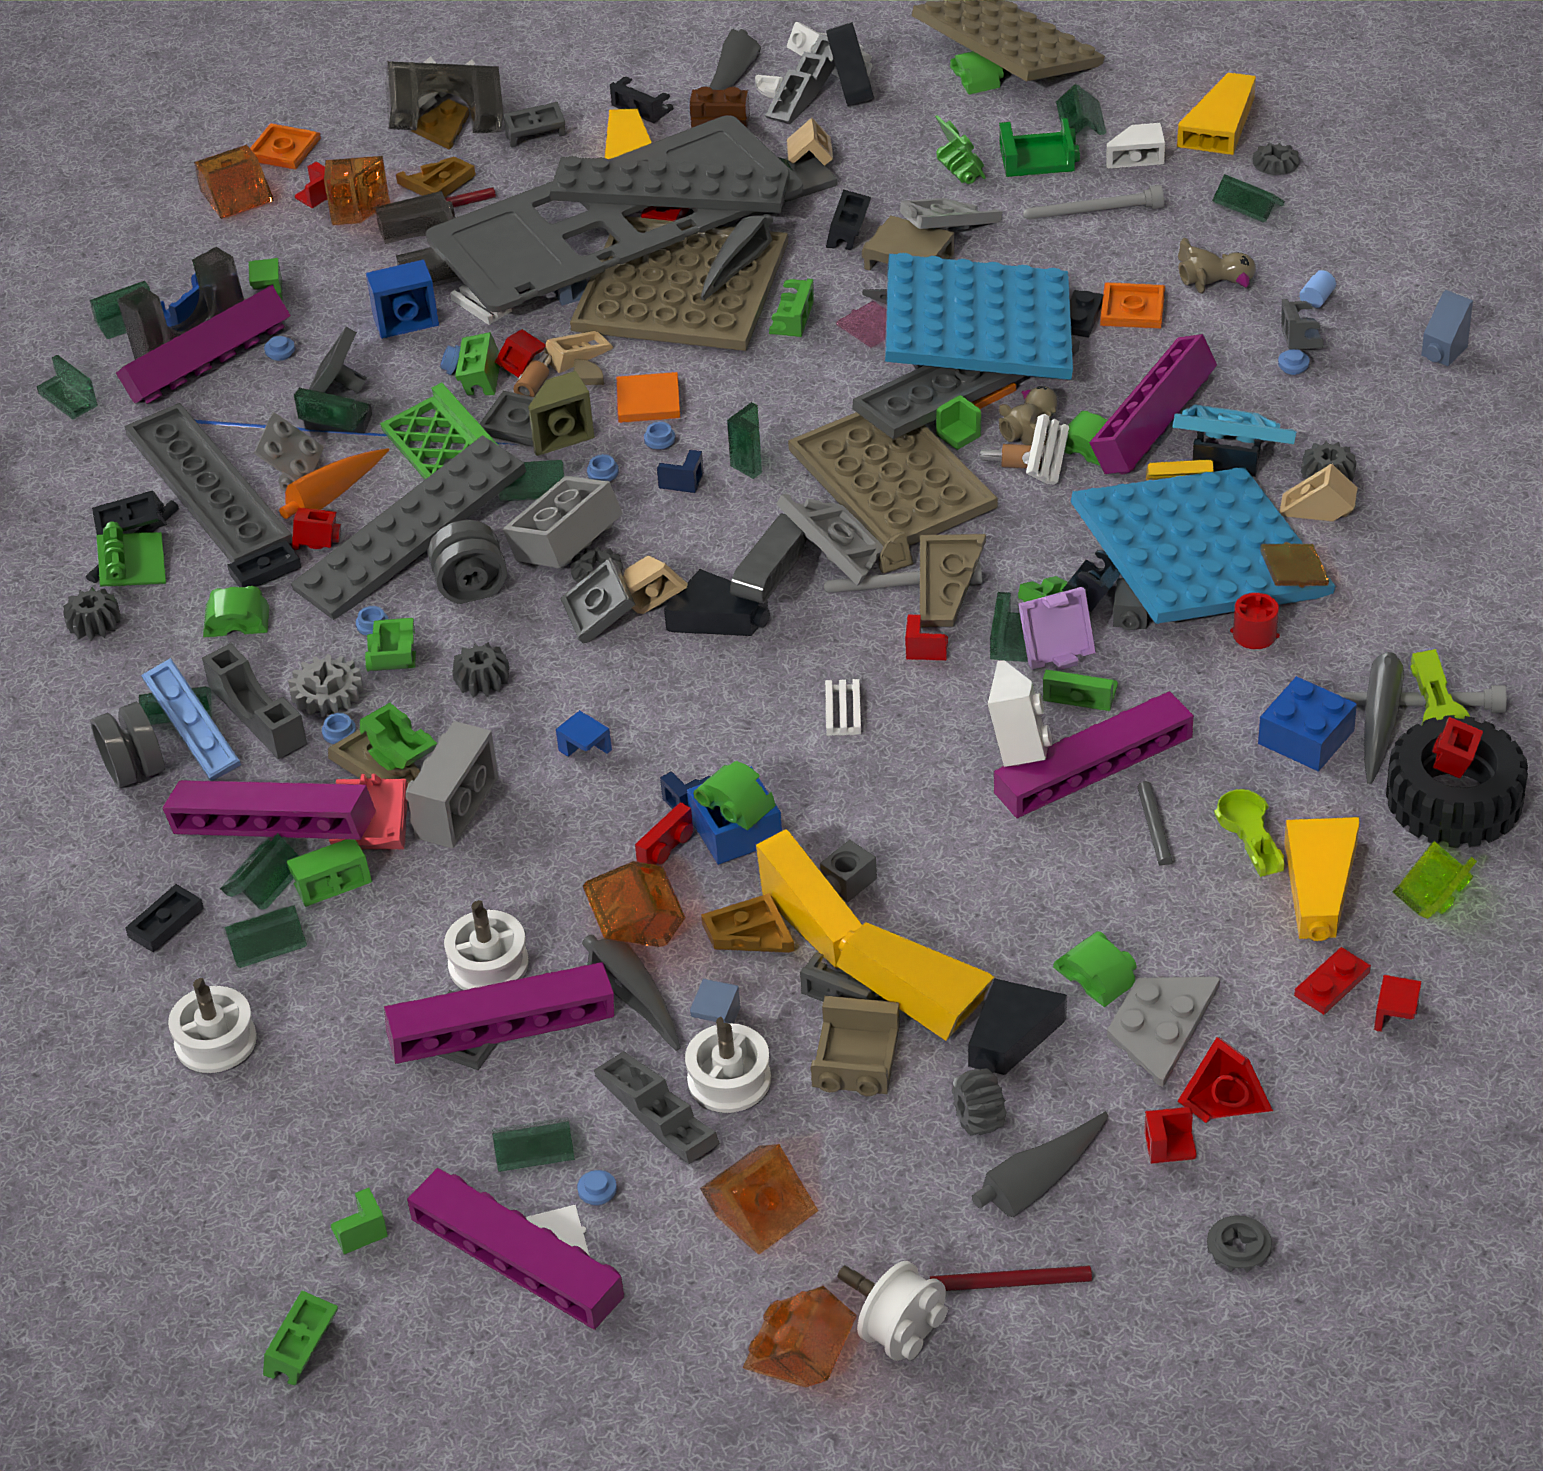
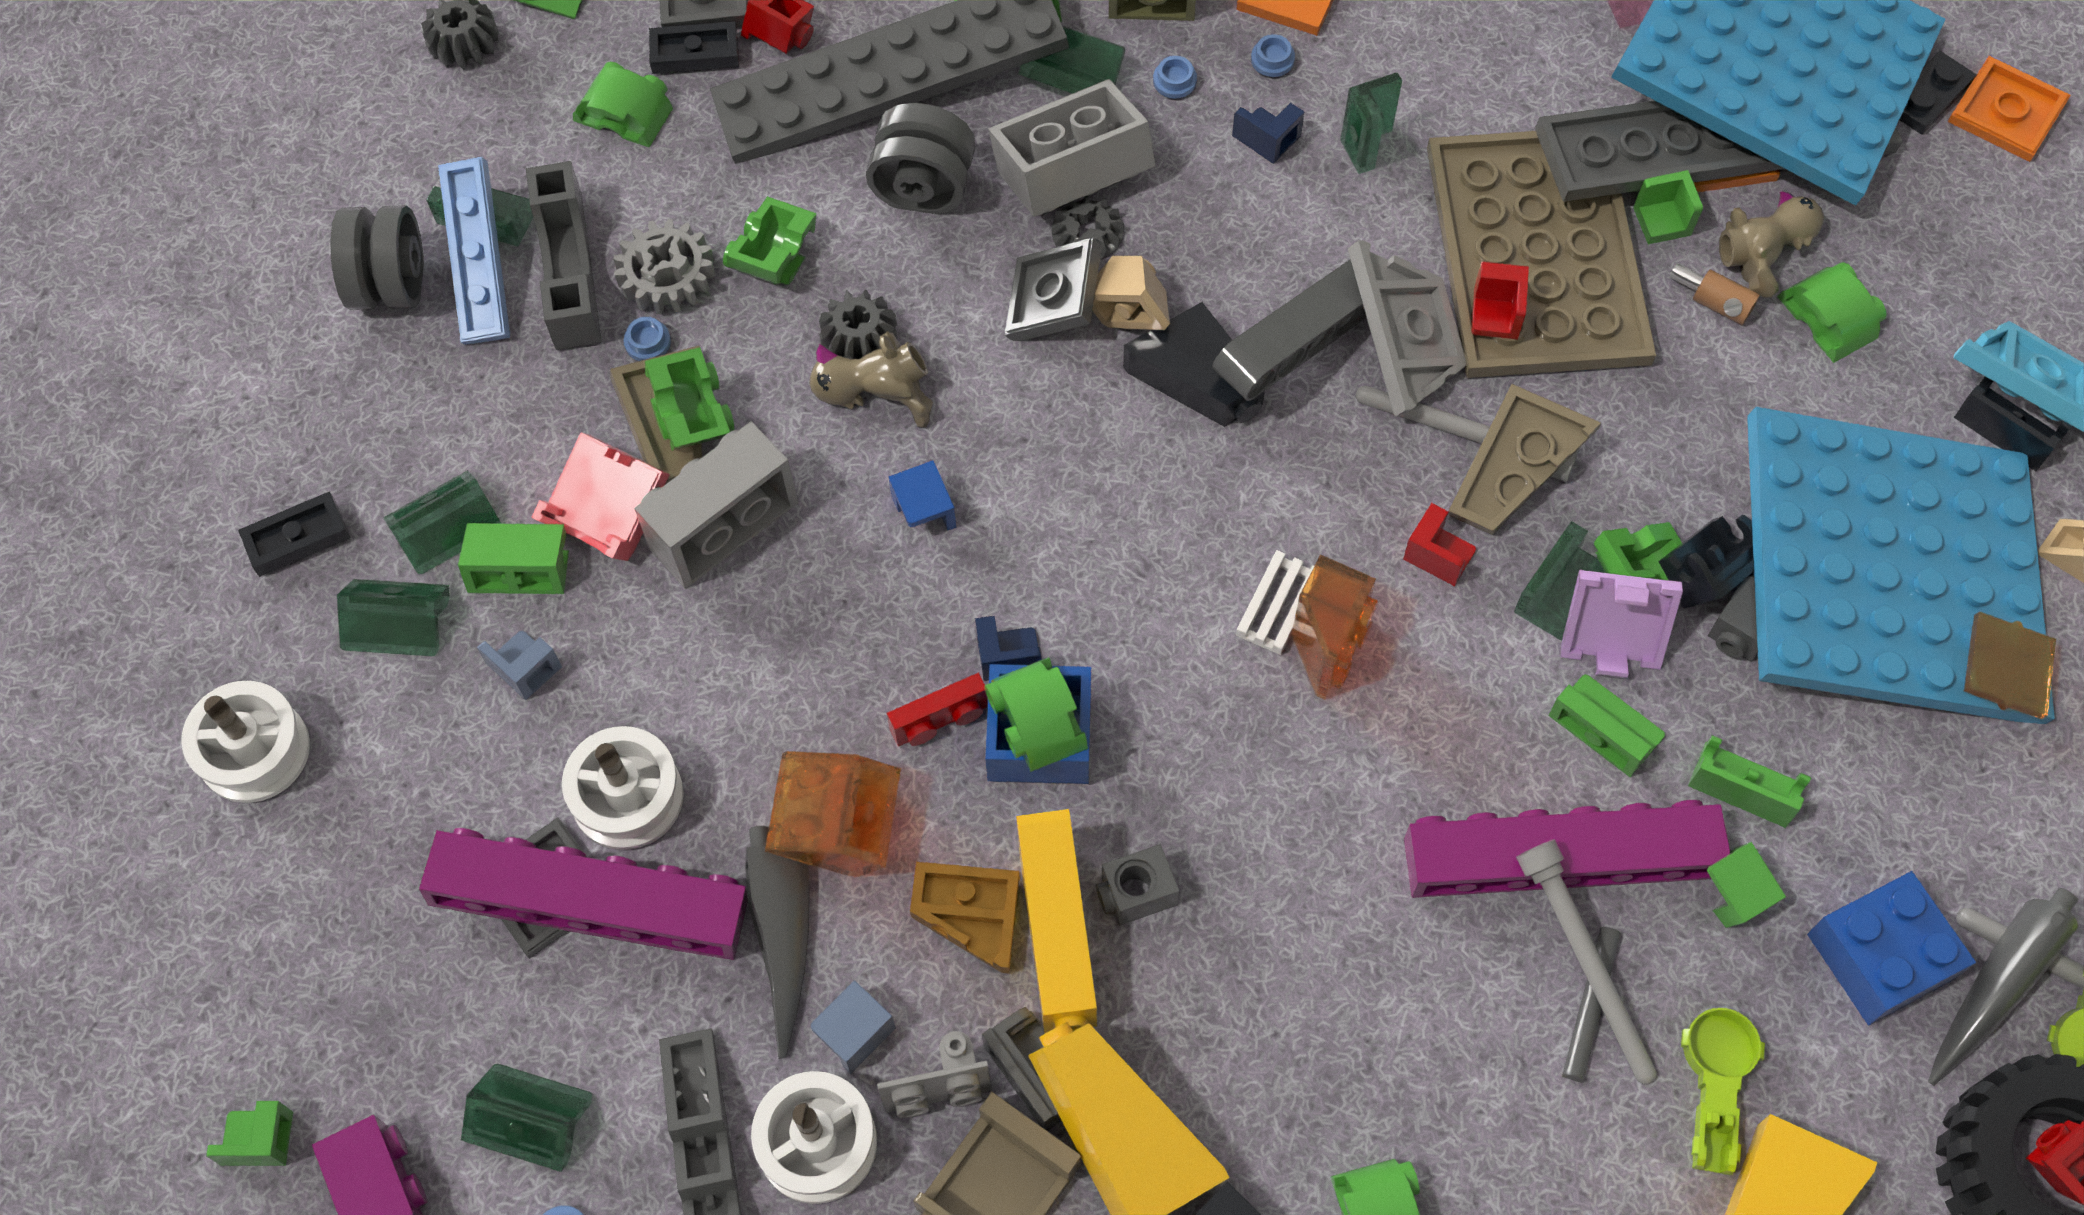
camera: 25 degrees right, 20 degrees up
(269, 809) = (486, 439): magenta brick -> none
(366, 619) = (774, 184): medium blue plate -> none
(372, 925) = (522, 662): none -> sand blue panel
(514, 682) = (885, 372): none -> dark tan animal
(790, 1004) = (959, 1081): none -> light grey hinge
(882, 694) = (1332, 622): none -> clear orange slope
(886, 500) = (1500, 300): none -> red panel
(895, 554) = (1474, 385): dark tan tile -> none
(1017, 717) = (1476, 764): white slope -> none
(1051, 452) = (1767, 313): white tile -> none
(1085, 754) = (1545, 868): none -> light grey piece
(1153, 404) = (1950, 295): magenta brick -> none
(1179, 468) = (1931, 421): yellow tile -> none
(1183, 685) = (1748, 784): none -> bright green hinge
(1209, 724) = (1744, 885): none -> bright green panel
(1255, 621) = (1907, 732): red piece -> none

